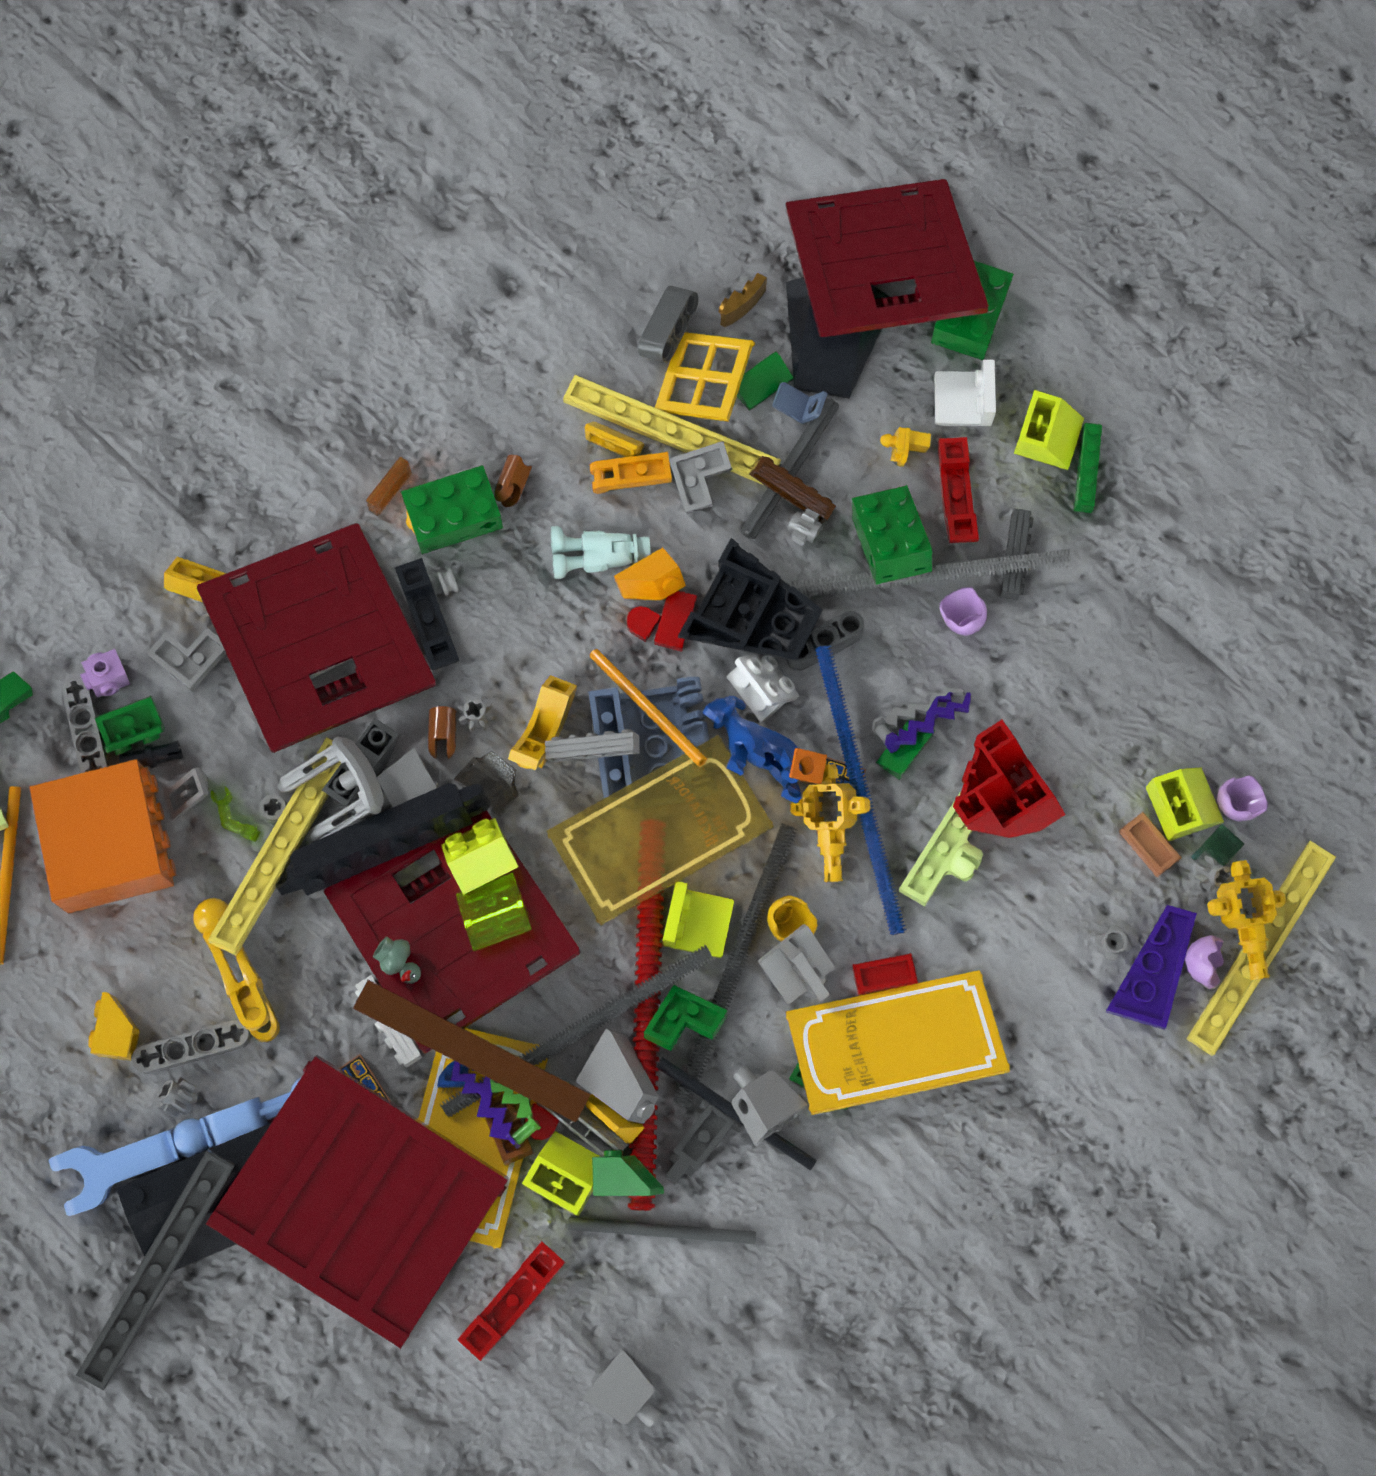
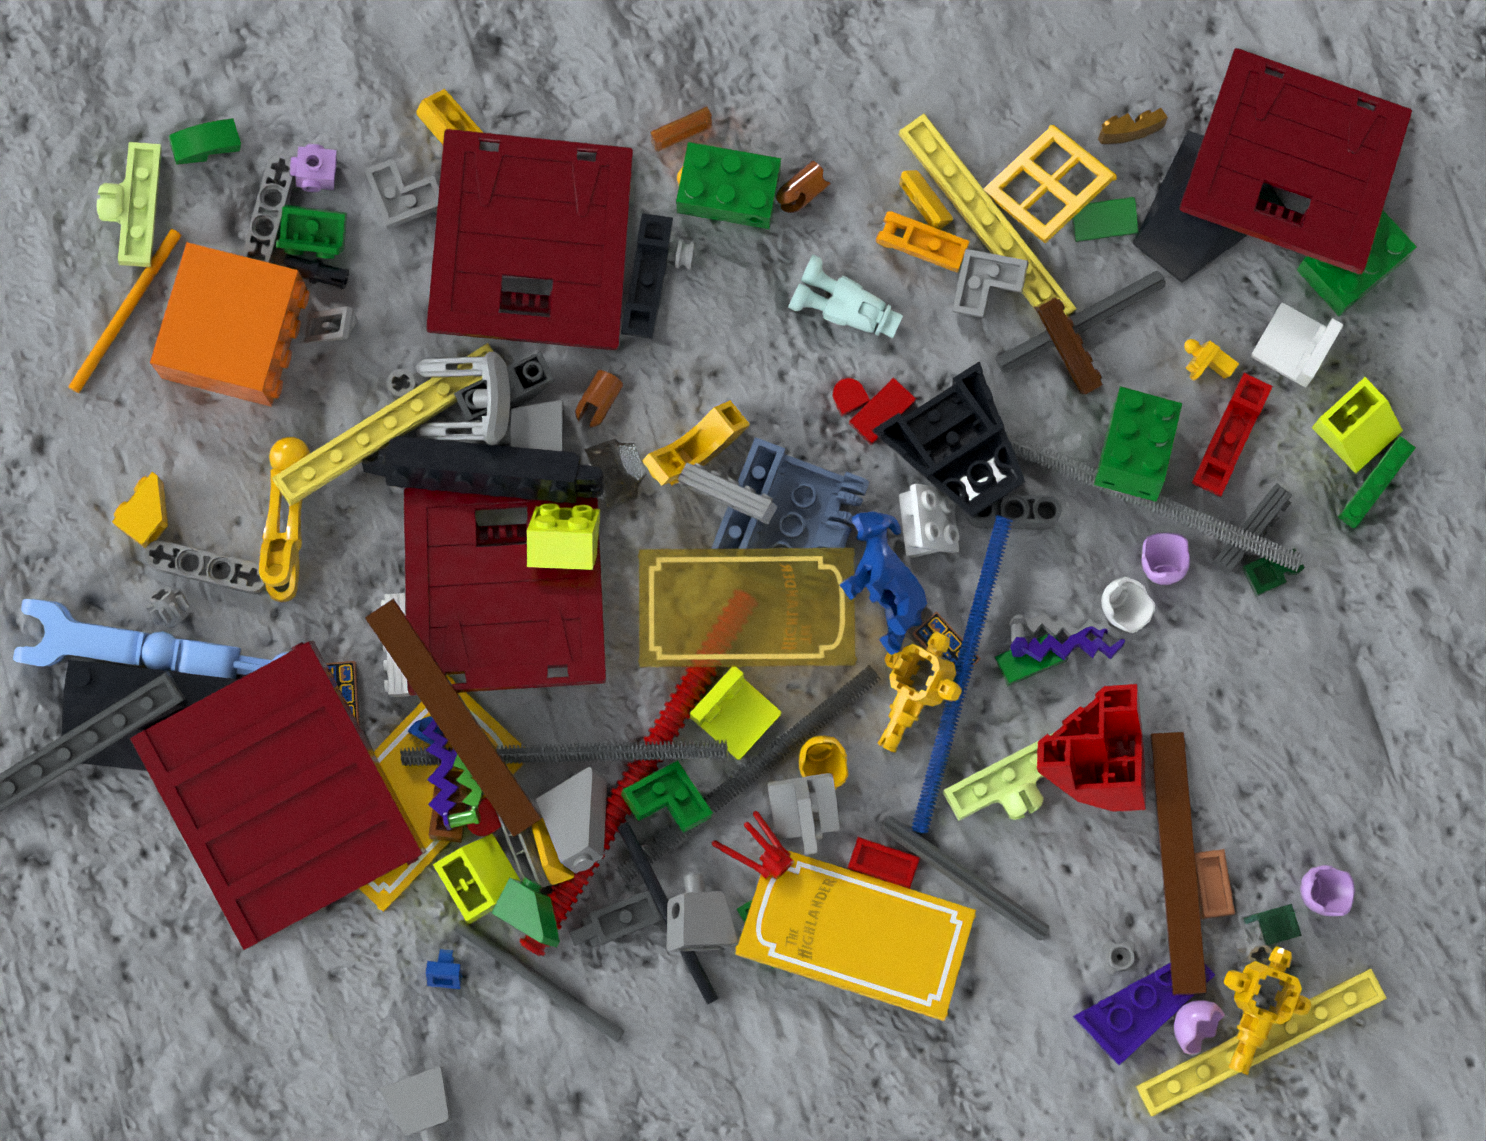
camera: 30 degrees right, 5 degrees up
(245, 830) = (353, 368): clear neon green arm -> none
(392, 959) = (428, 591): sand green animal -> none
(475, 722) = (648, 398): light grey gear -> none
(493, 912) = (546, 599): clear neon green slope -> none
(511, 1301) = (365, 965): red slope -> none
(580, 1269) = (444, 972): none -> blue tile
(651, 578) = (880, 357): light orange slope -> none
(668, 324) = (1044, 111): dark grey beam -> none
(683, 743) = (804, 484): light orange piece -> none
(797, 404) = (1126, 261): sand blue bracket -> none
(798, 1019) = (775, 859): none -> red plant
(805, 527) = (1059, 389): light grey gear -> none
(812, 766) = (926, 625): orange bracket -> none
(955, 663) = (1127, 604): none -> white hair
(956, 949) = (965, 878): none -> dark grey axle
(1048, 582) = (1267, 575): none -> dark green plate
(1116, 843) = (1178, 864): none -> reddish brown tile
(1183, 802) = (1269, 863): neon yellow slope -> none

